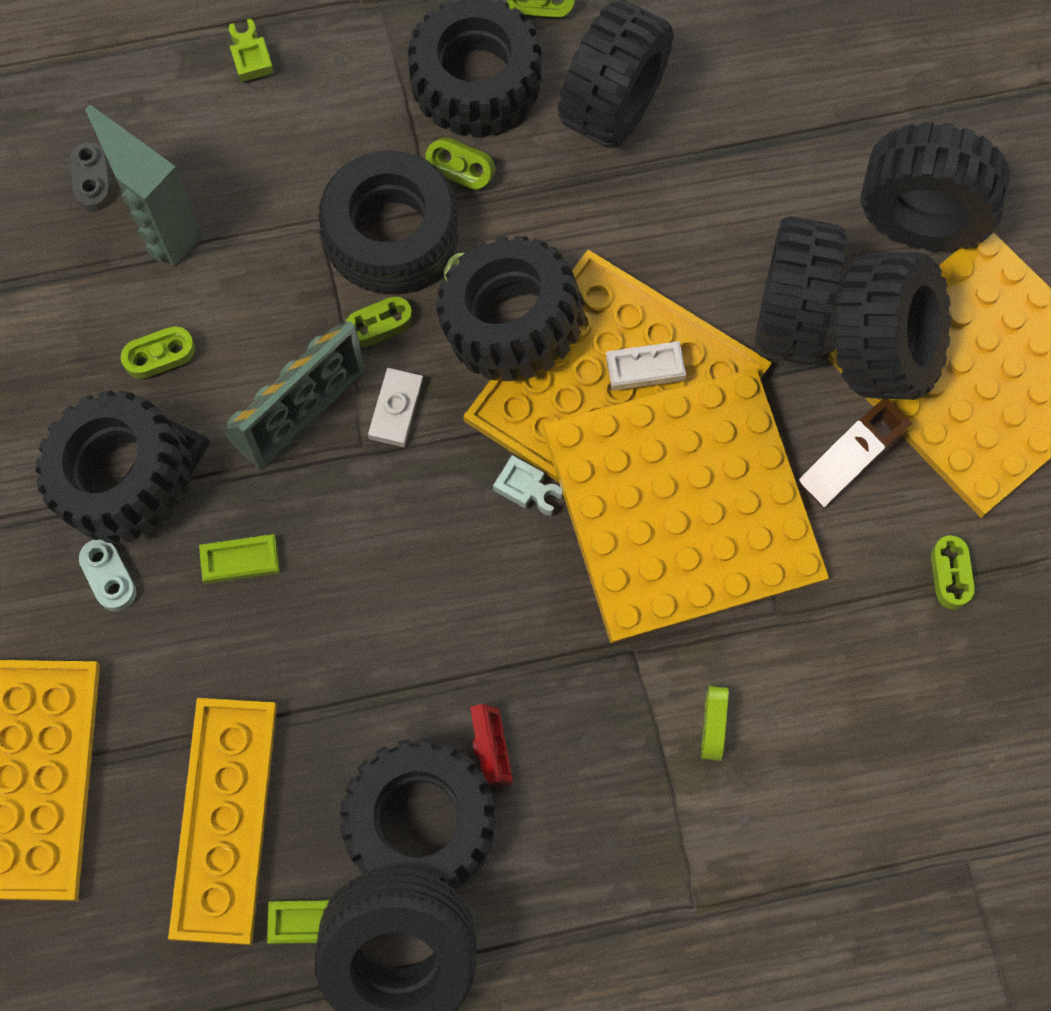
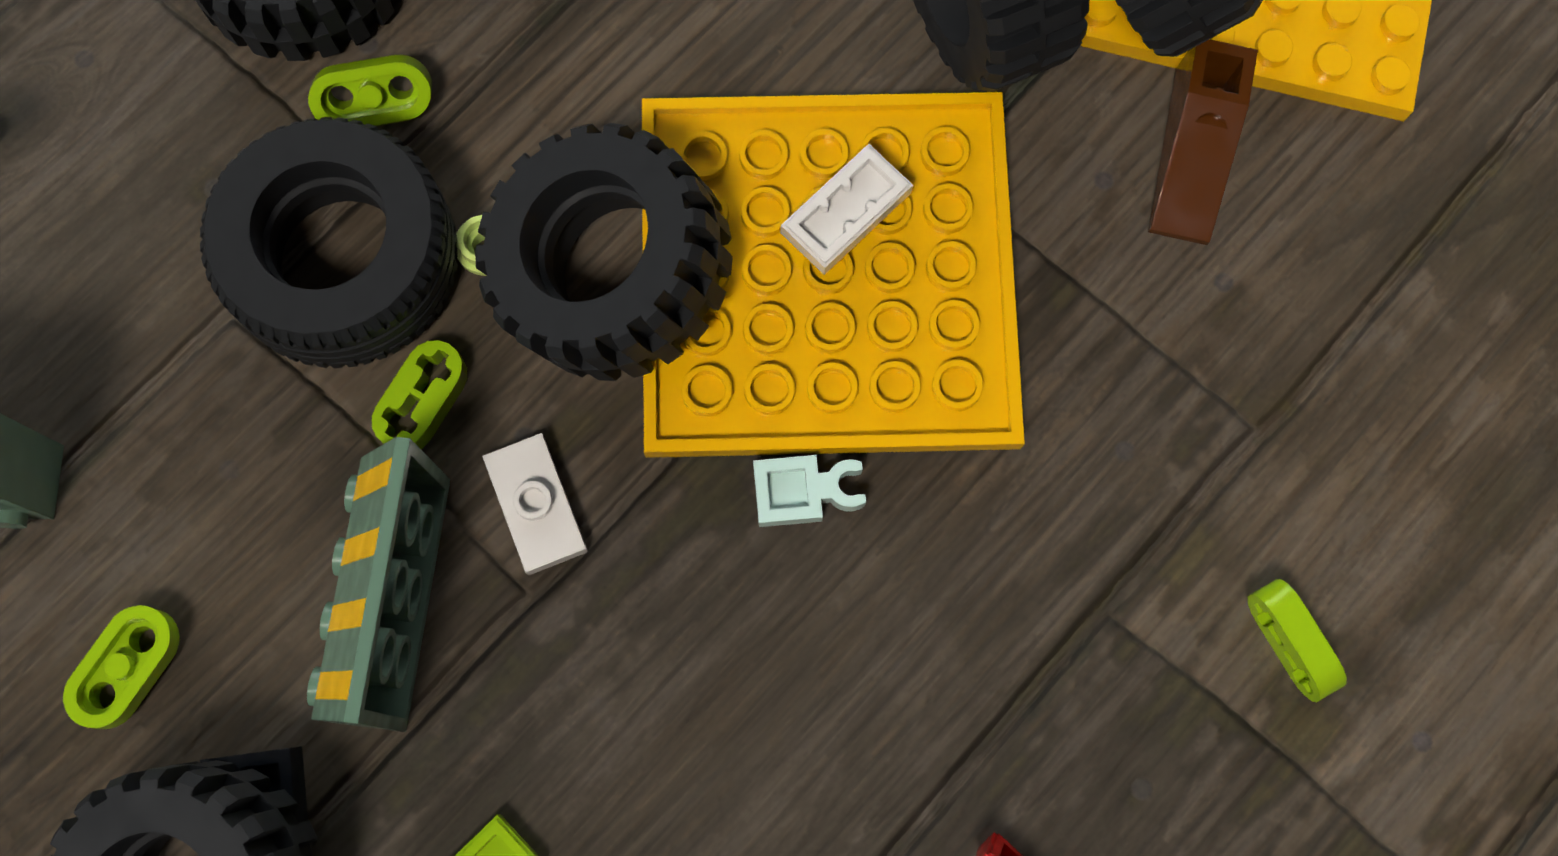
camera: 40 degrees left, 5 degrees up
(684, 504) = (1034, 370): yellow plate -> none
(961, 572) = (1429, 217): lime beam -> none

